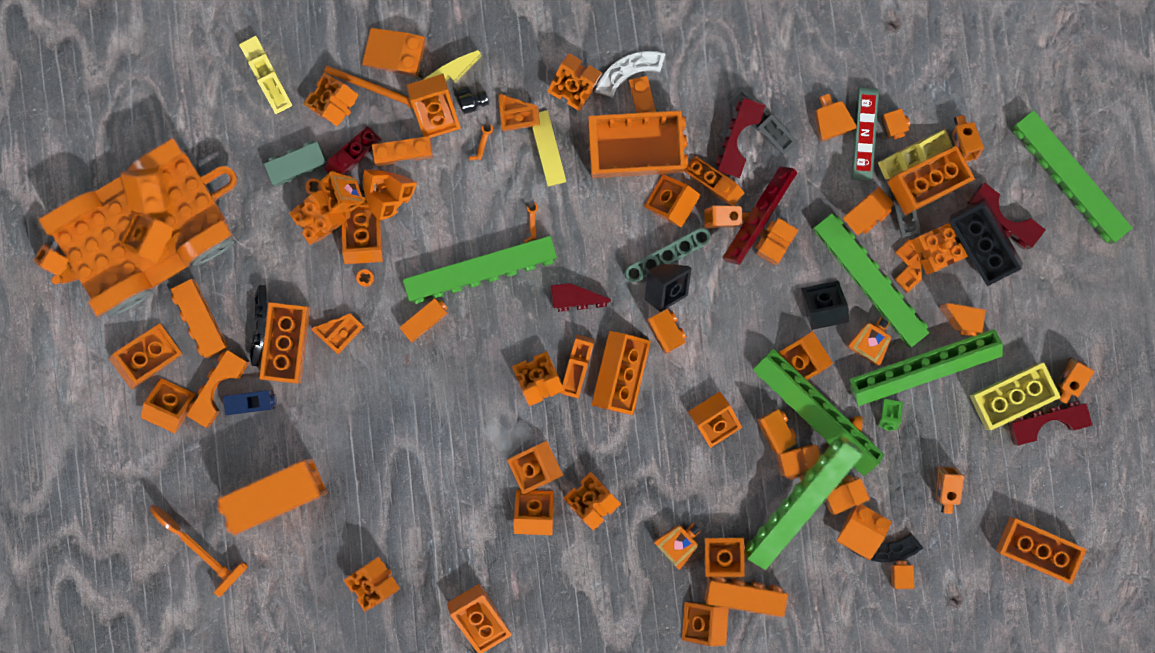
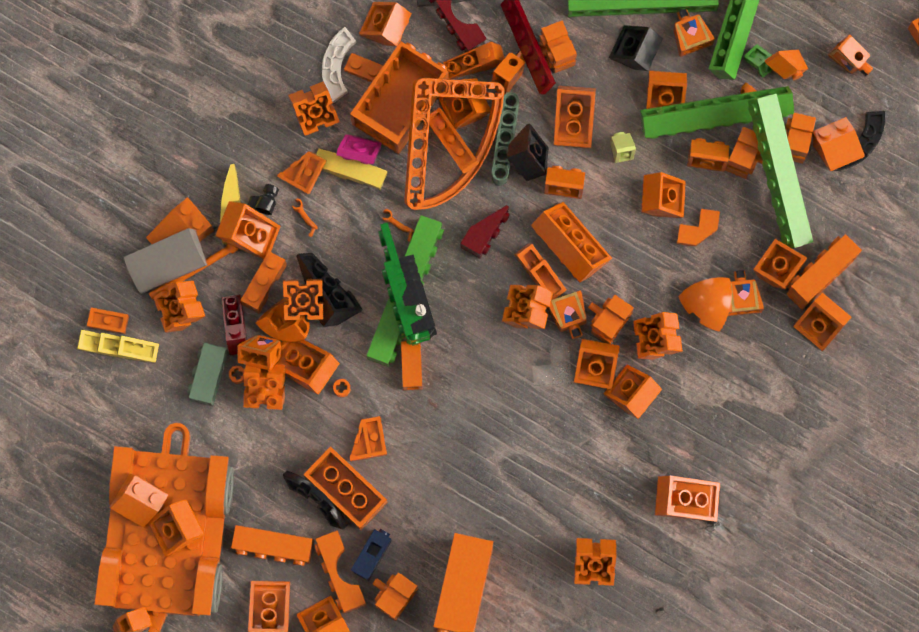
camera: 50 degrees left, 10 degrees down
(229, 445) = (394, 595): none -> orange brick
(280, 50) = (107, 320): none -> orange plate
(360, 59) = (165, 260): none -> light grey slope
(406, 195) = (303, 299): none -> orange brick
(430, 210) = (337, 303): none -> black wedge
(473, 274) = (406, 292): none -> piece
(559, 415) = (569, 313): none -> orange torso
(568, 144) = (359, 149): none -> dark pink plate
(578, 451) = (610, 318): none -> orange brick
(600, 198) = (481, 154): none -> orange beam
(632, 214) = (452, 141): none -> orange plate
(652, 521) = (709, 301): none -> orange brick
(692, 84) = (385, 23): none -> orange slope
(701, 468) = (695, 235): none -> orange tile
(729, 297) = (574, 116): none -> orange slope
(731, 356) = (622, 147): none -> yellowish green slope
(902, 441) = (787, 64): none -> orange slope
(902, 575) = (894, 141): orange brick -> none

